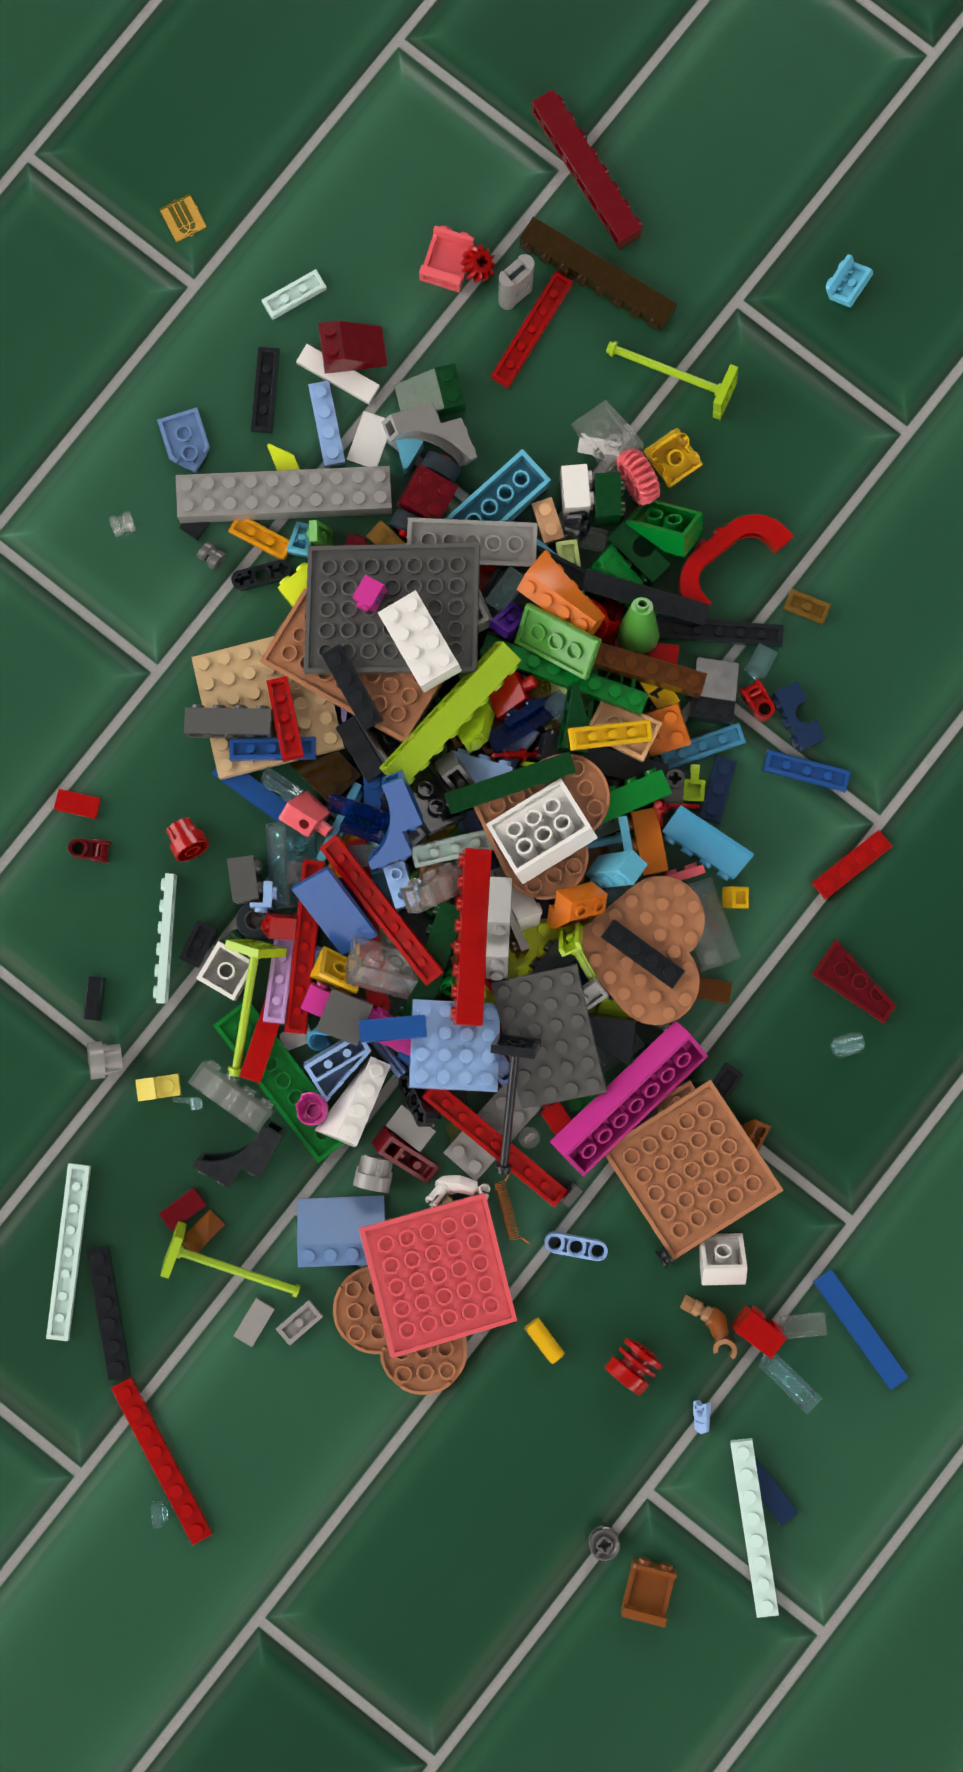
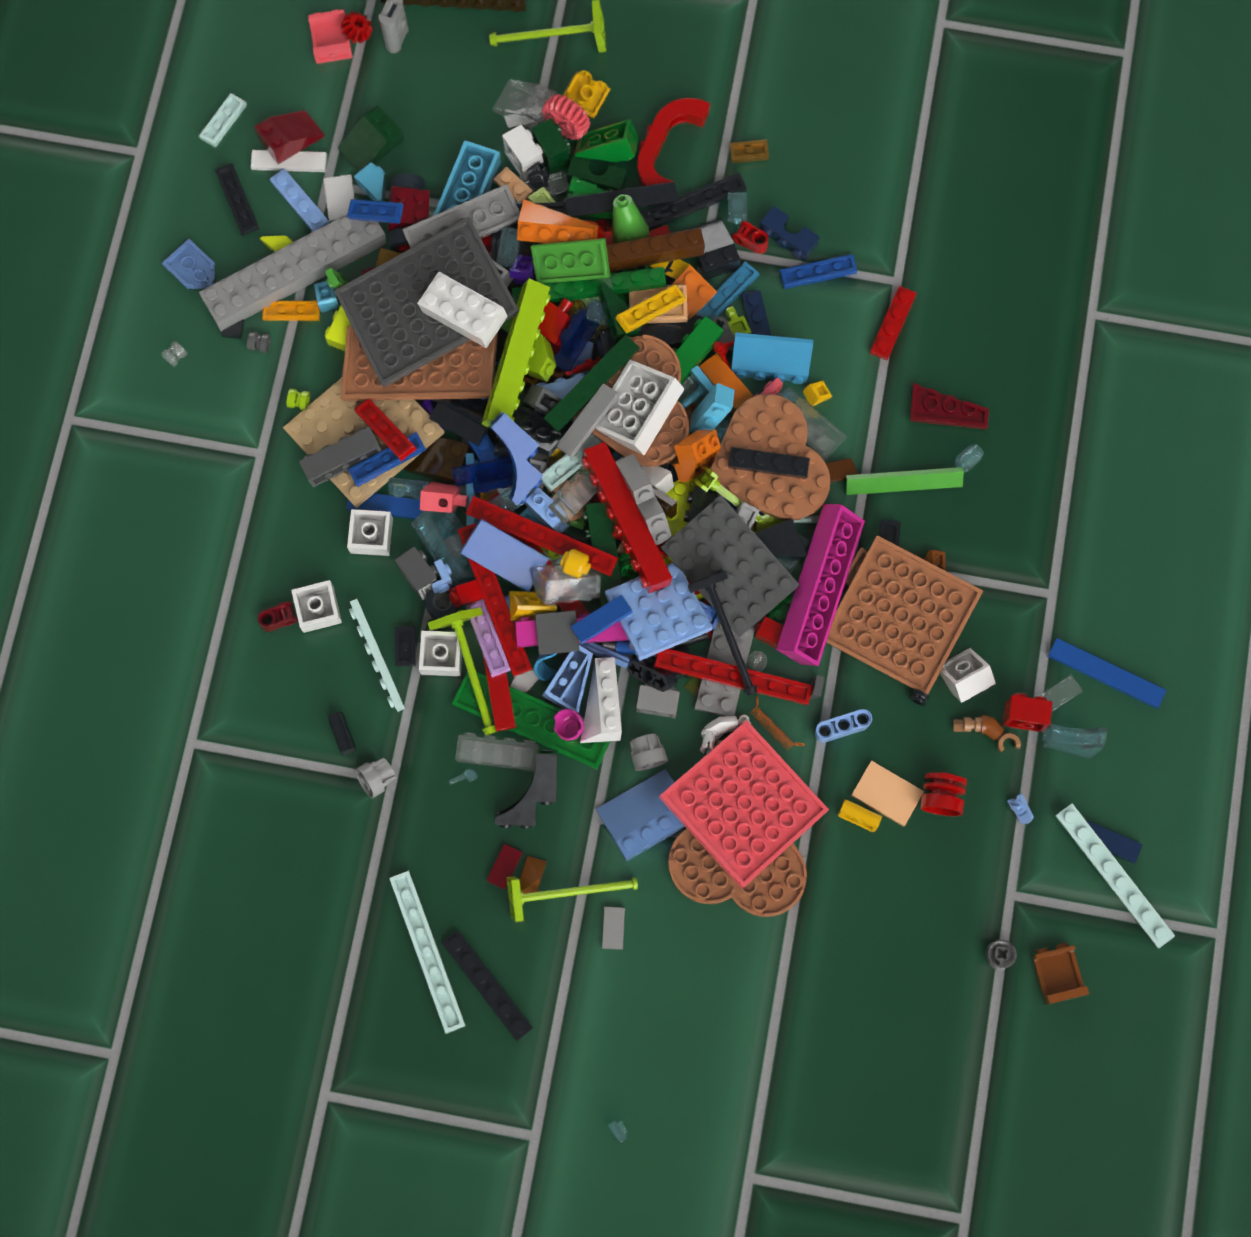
camera: 25 degrees left, 10 degrees down
(77, 804) = (248, 588): red tile -> none
(132, 860) = (316, 606): none -> white brick
(158, 1087) = (432, 778): light yellow slope -> none
(162, 1460) = (597, 1085): red plate -> none
(182, 218) = (104, 107): clear yellow piece -> none
(186, 840) = (353, 568): red piece -> none
(220, 636) = (298, 399): none -> lime wheel
(220, 812) = (370, 532): none -> white brick
(247, 583) = (306, 346): black beam -> none
(299, 1322) = (651, 907): light grey plate -> none
(352, 687) = (427, 374): black plate -> none
(369, 594) = (403, 297): dark pink brick -> none
(391, 482) = (375, 211): none -> blue tile
(397, 958) = (575, 563): none -> yellow head
(404, 1155) = (664, 725): dark red slope -> none
(424, 425) = (378, 160): light grey arch -> none
(485, 819) = (587, 420): none -> light grey tile
(531, 330) = (424, 57): red tile -> none
(582, 1332) = (887, 793): none -> light nougat tile
(771, 1034) = (904, 481): none -> bright green tile

